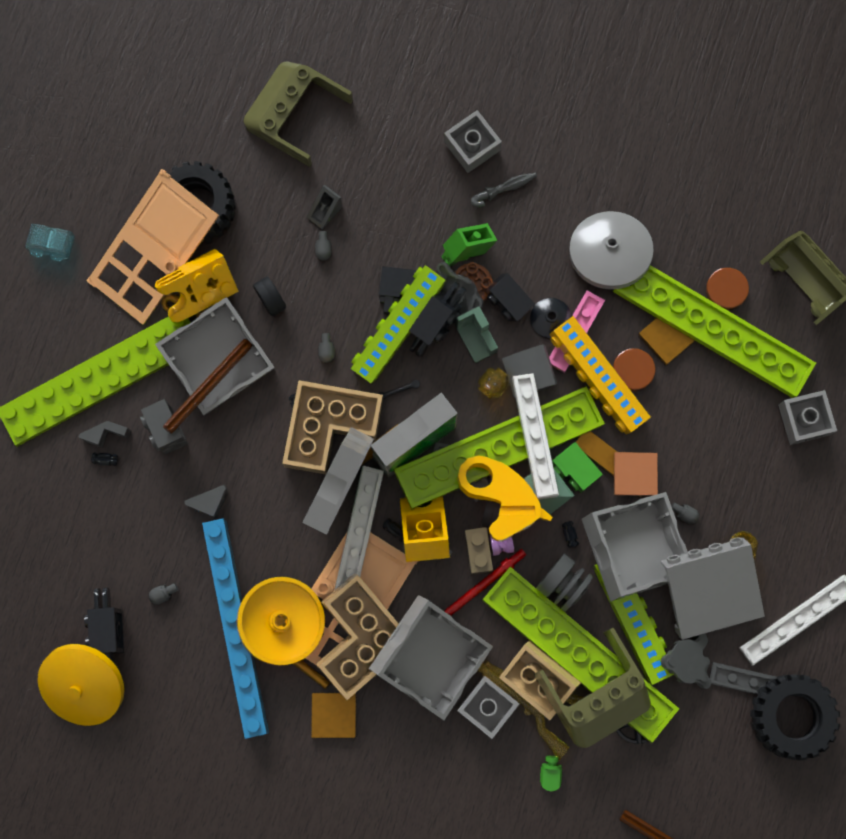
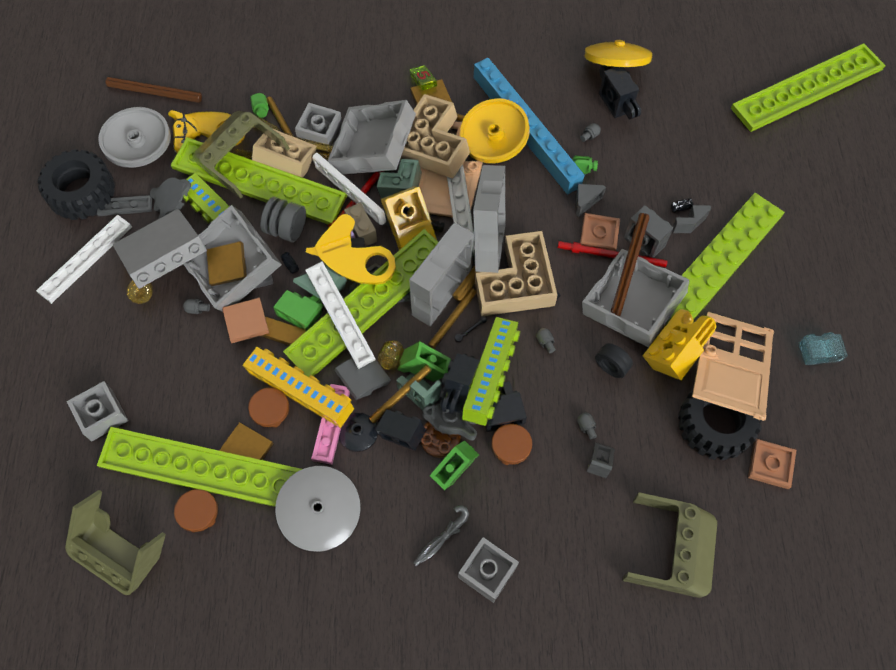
camera: 160 degrees right, 15 degrees down
(162, 151) = (772, 464): none -> nougat tile
(181, 542) = (585, 163): none -> bright green arm
(212, 457) = (600, 231): none -> nougat tile
(246, 444) = (576, 247): none -> red bar
(334, 746) = (423, 77): none -> clear neon green tile
(405, 250) = (511, 444): none -> dark orange tile
(409, 587) = (407, 177): none -> sand green panel
(414, 407) = (452, 318): none -> pearl gold bar
(463, 356) = (419, 355): none -> bright green hinge
(478, 602) = (349, 188): none -> white tile
(498, 331) = (399, 394): none -> pearl gold bar
(530, 745) = (278, 115): none -> pearl gold bar
(636, 775) = (196, 124): none -> yellow animal
(641, 544) = (226, 263): none -> pearl gold tile
(715, 769) = (134, 137): none -> light grey dish

